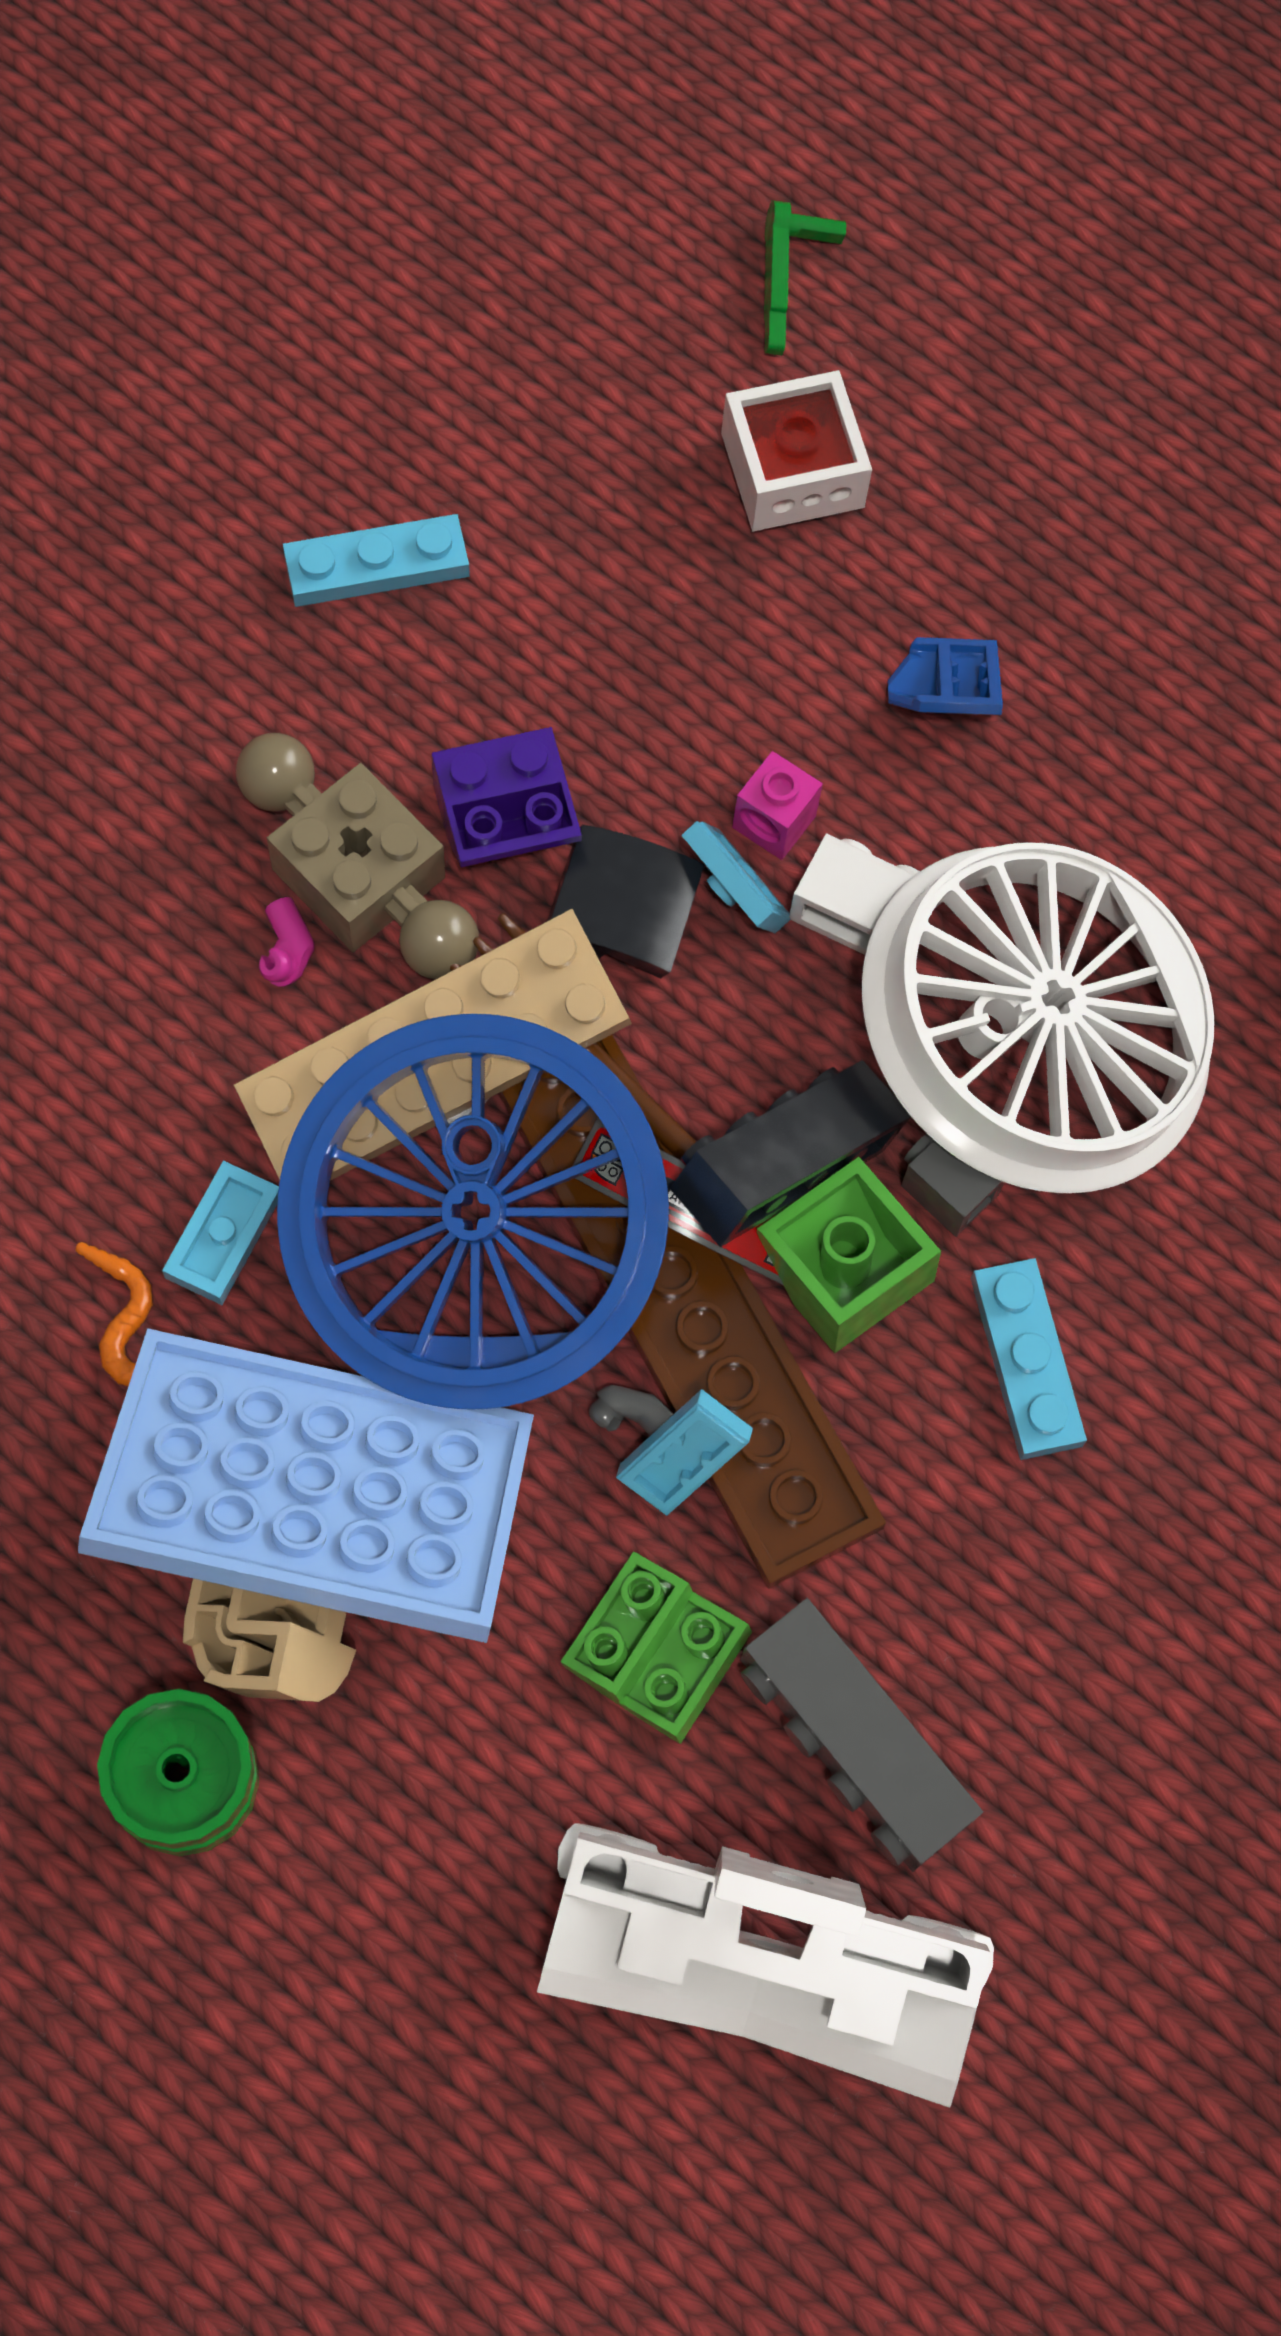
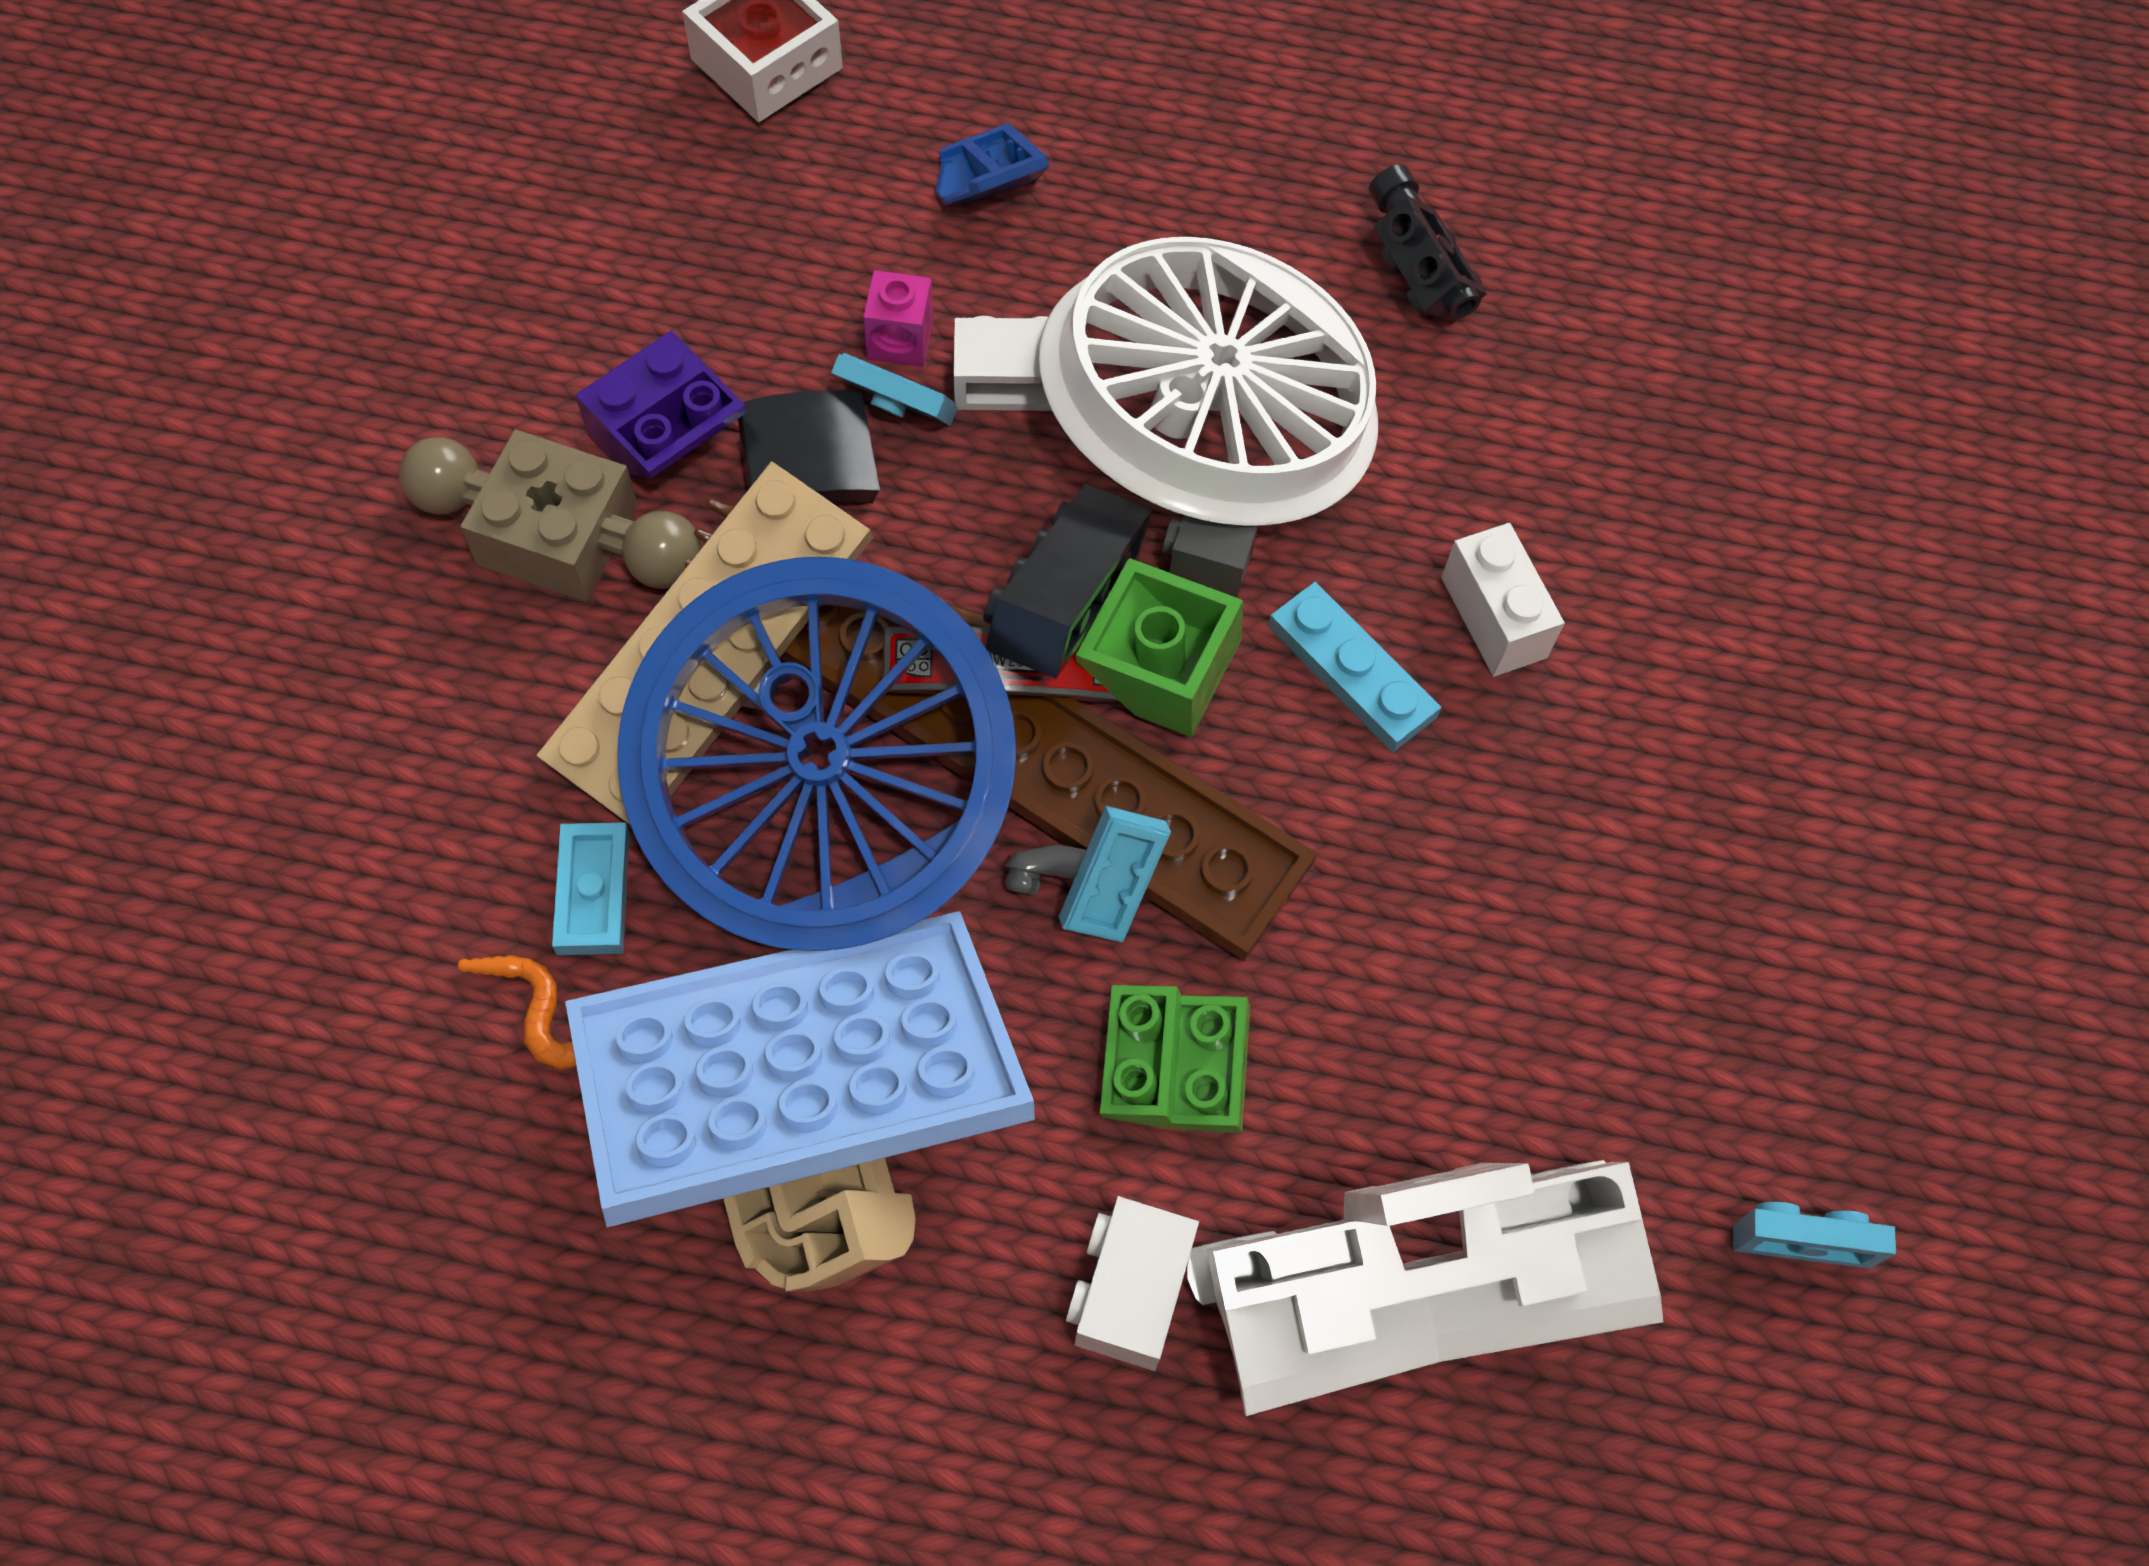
camera: 25 degrees left, 5 degrees down
(195, 1734) = (783, 1352): green wheel -> none
(293, 947) = (530, 617): dark pink arm -> none
(376, 560) = (440, 274): medium azure plate -> none
(508, 1825) = (1134, 1283): none -> white brick
(859, 1736) = (1396, 1045): dark grey brick -> none
(1168, 2122) = (1837, 1238): none -> medium azure plate
(1204, 1364) = (1502, 599): none -> white brick

